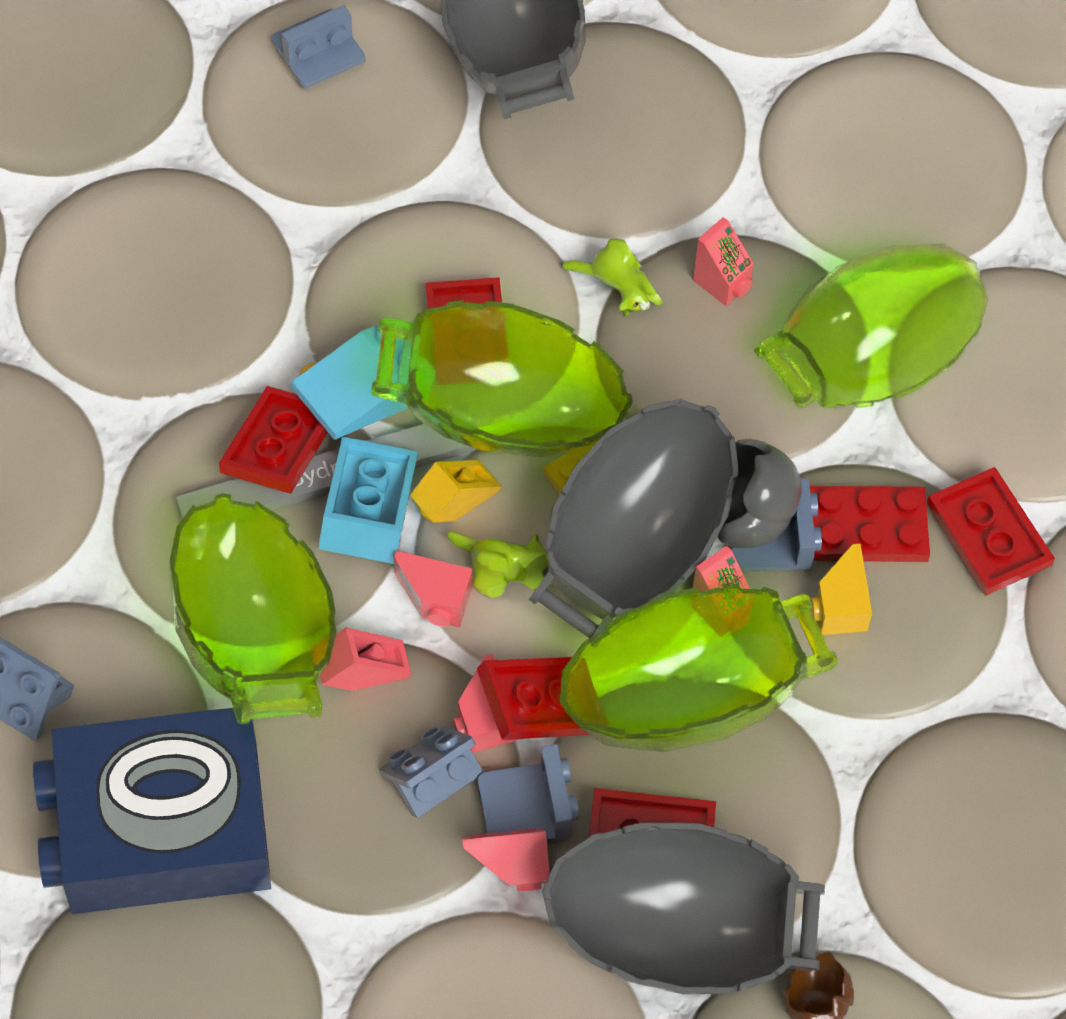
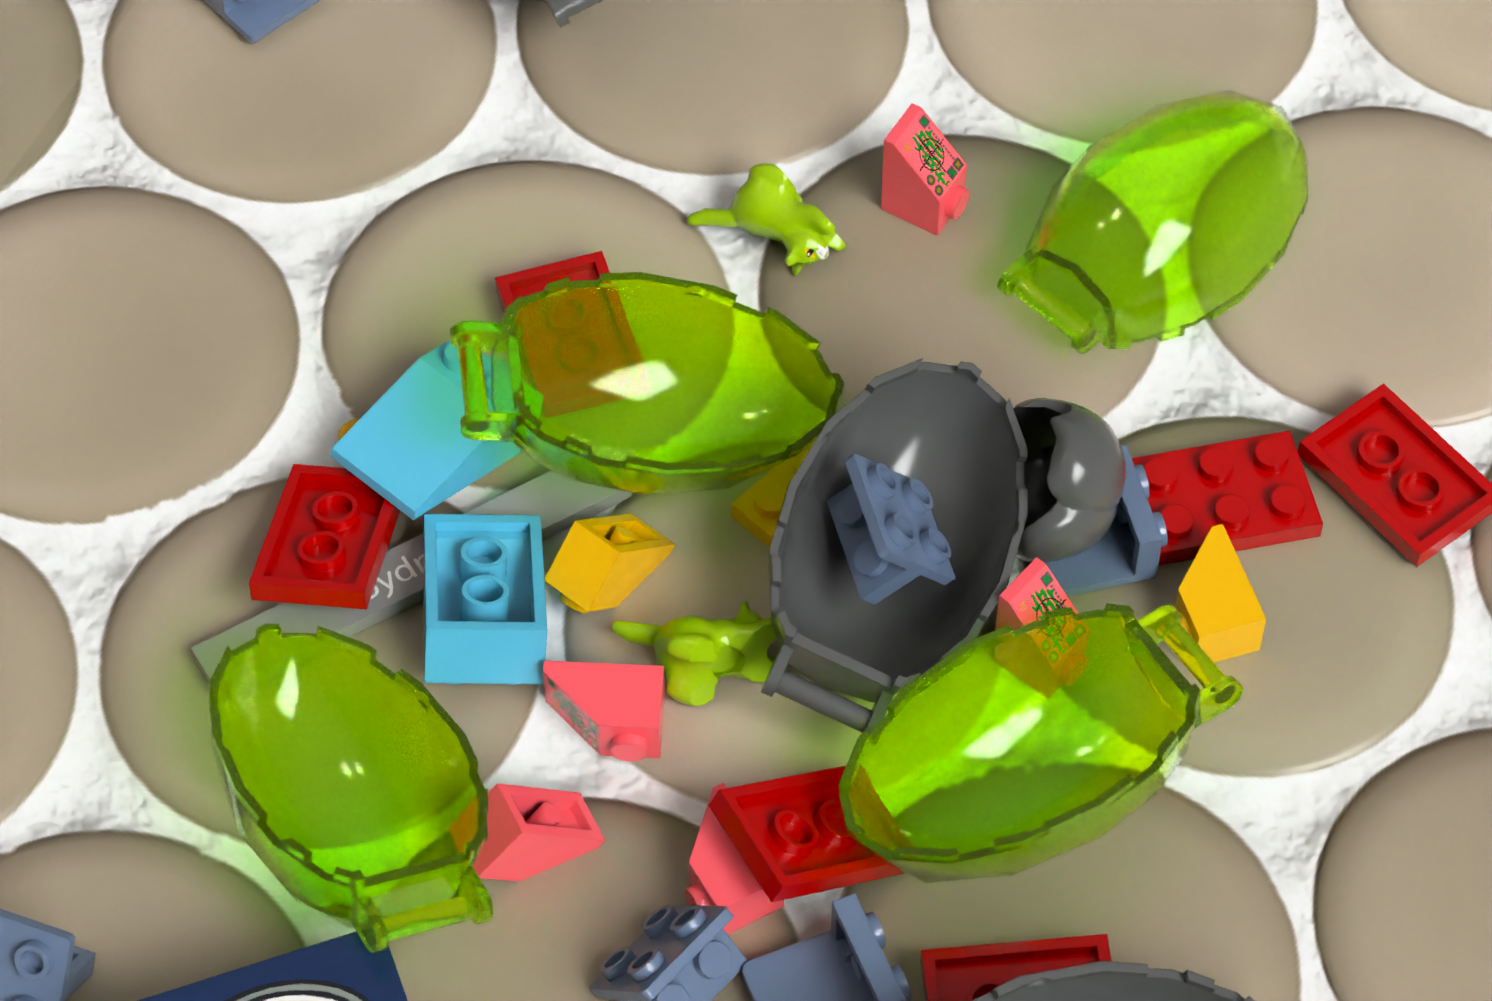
camera: 10 degrees left, 5 degrees down
(637, 507) = (888, 530): none -> sand blue bracket

